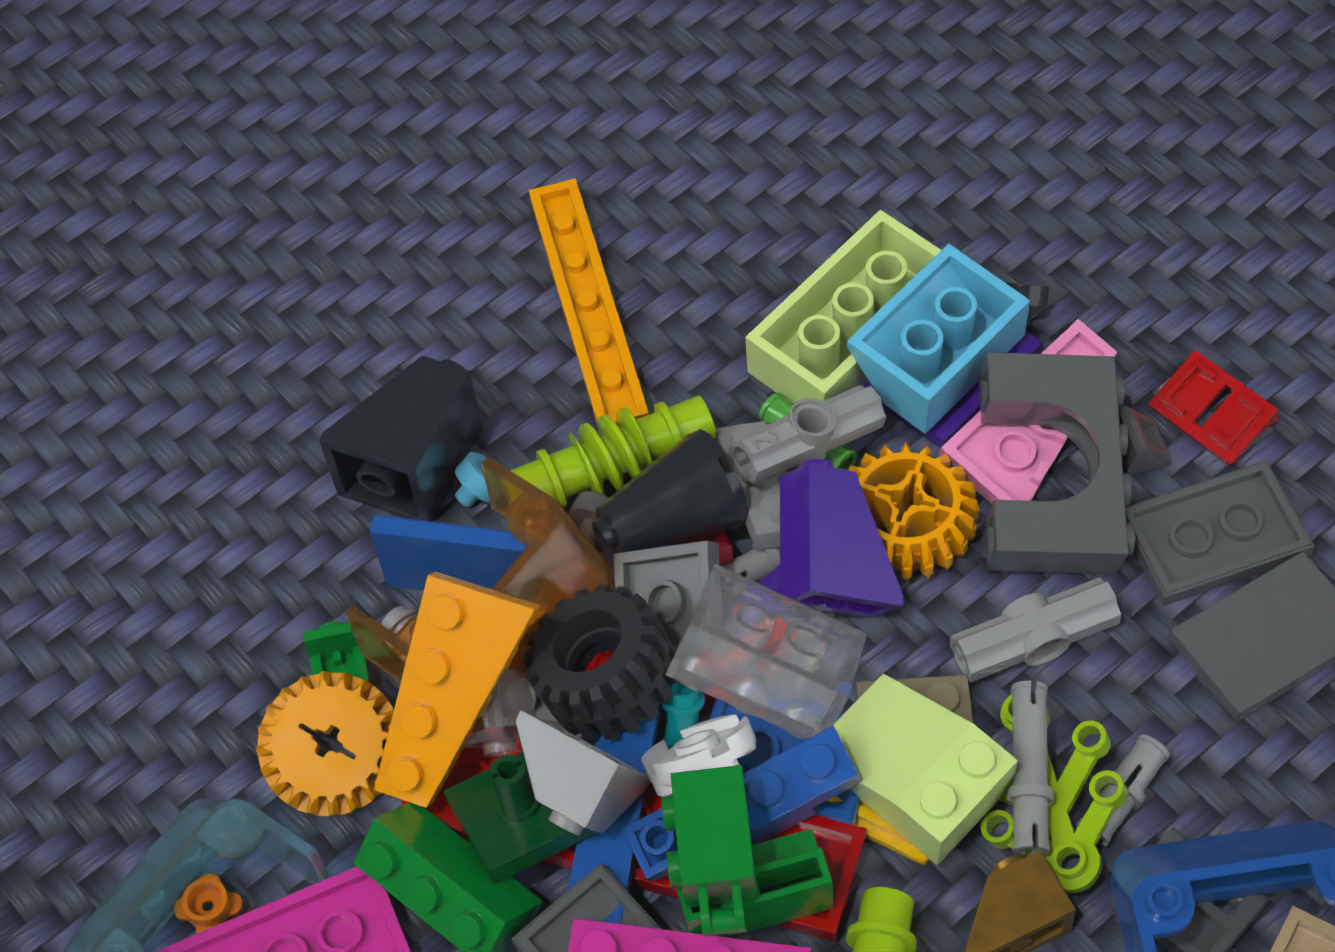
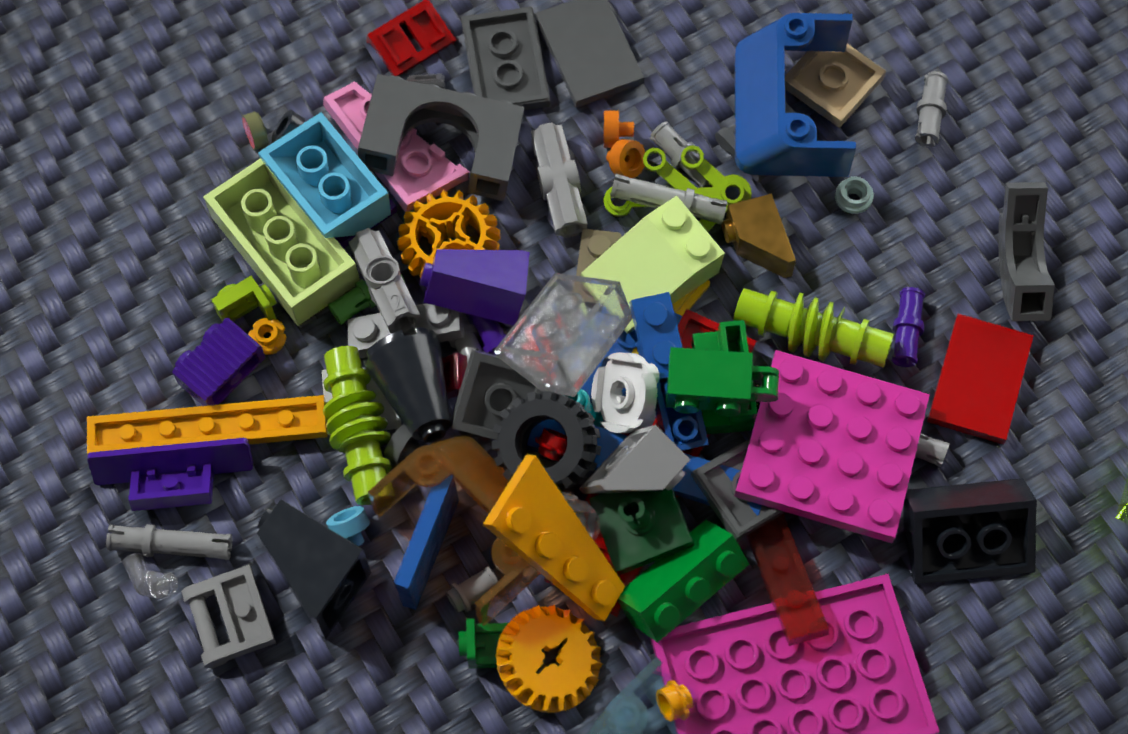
camera: 85 degrees left, 10 degrees up
(272, 896) = (674, 701): none -> light orange plate
(342, 392) = (241, 612): none -> light grey plate
(386, 287) = (148, 582): none -> clear arm
(432, 282) = (161, 541): none -> light grey pin
(516, 280) = (170, 473): none -> dark purple bracket
(672, 294) = (218, 363): none -> dark purple brick
(728, 351) = (275, 341): none -> light orange plate
(758, 291) = (240, 298): none -> lime bracket
(1012, 258) = (255, 130): none -> olive tile
(1096, 703) = (626, 158): none -> orange tile
(1137, 685) = (614, 129): none -> orange tile

